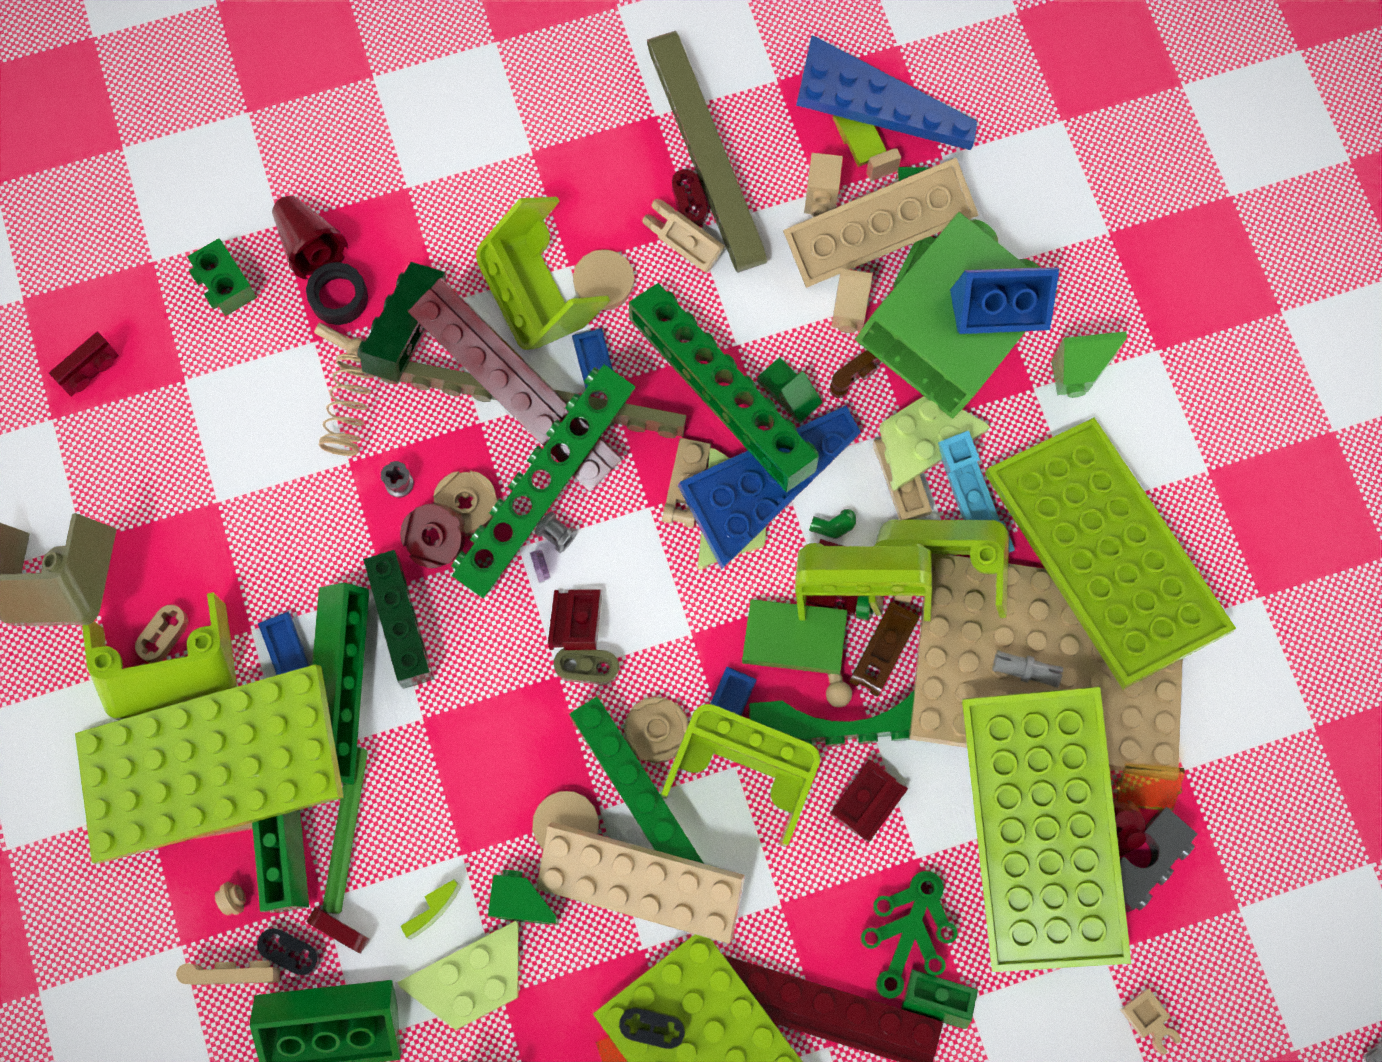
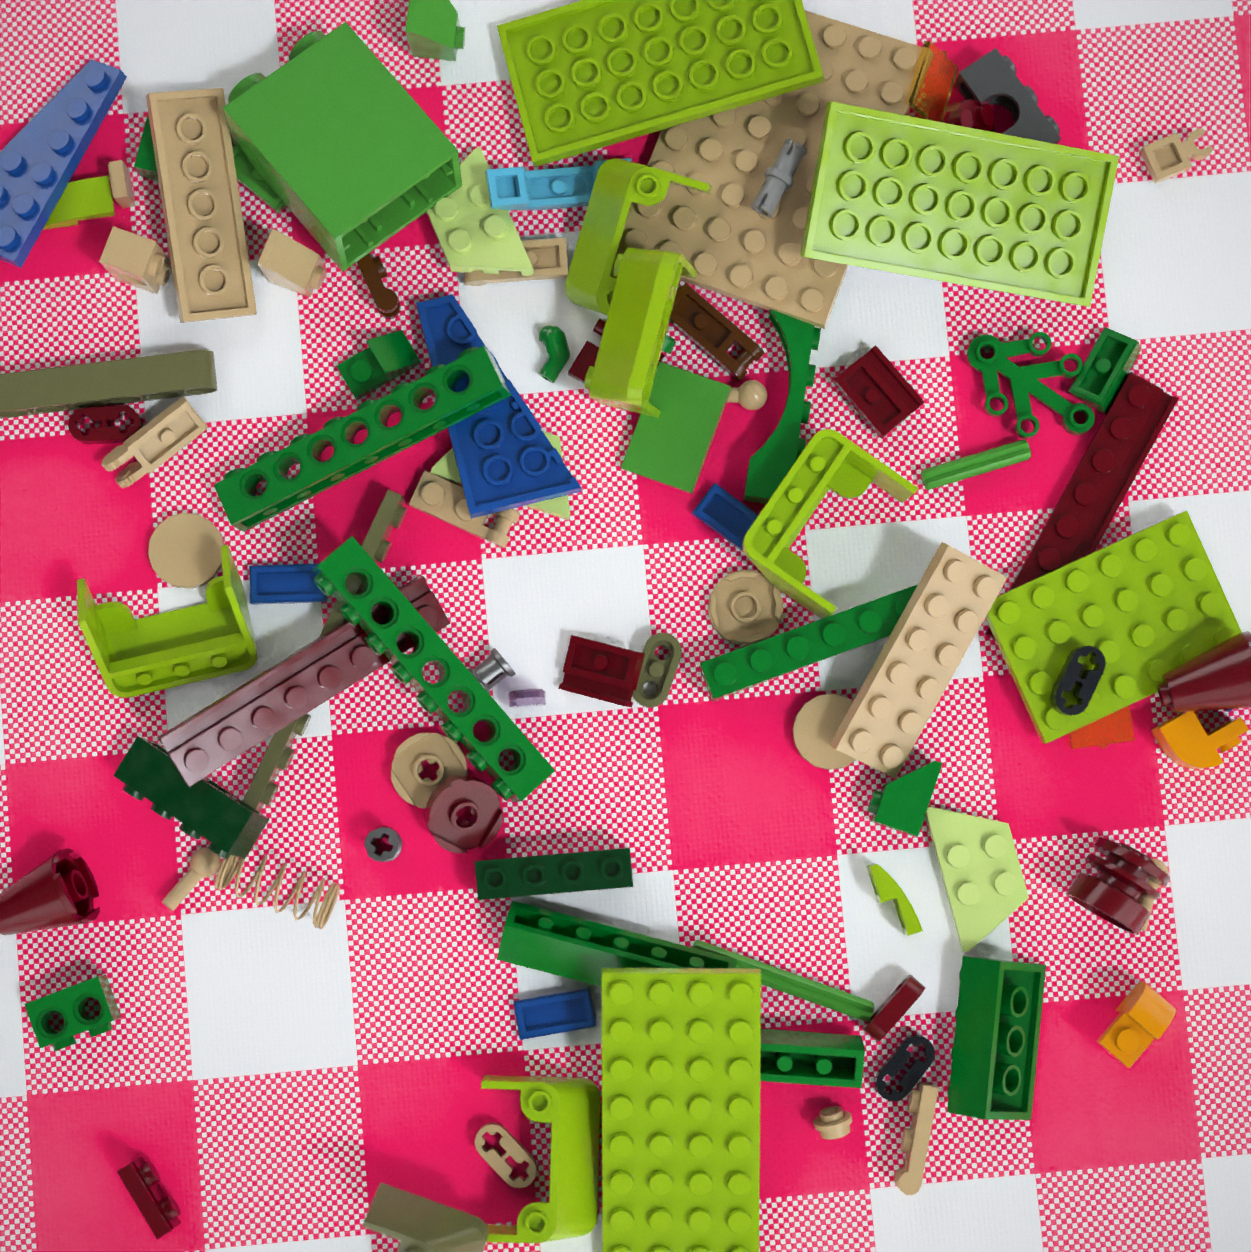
camera: 75 degrees left, 10 degrees up
(331, 272) = (107, 853): black tyre -> none
(826, 901) = (975, 464): none -> bright green axle
(1004, 300) = (352, 84): blue slope -> none

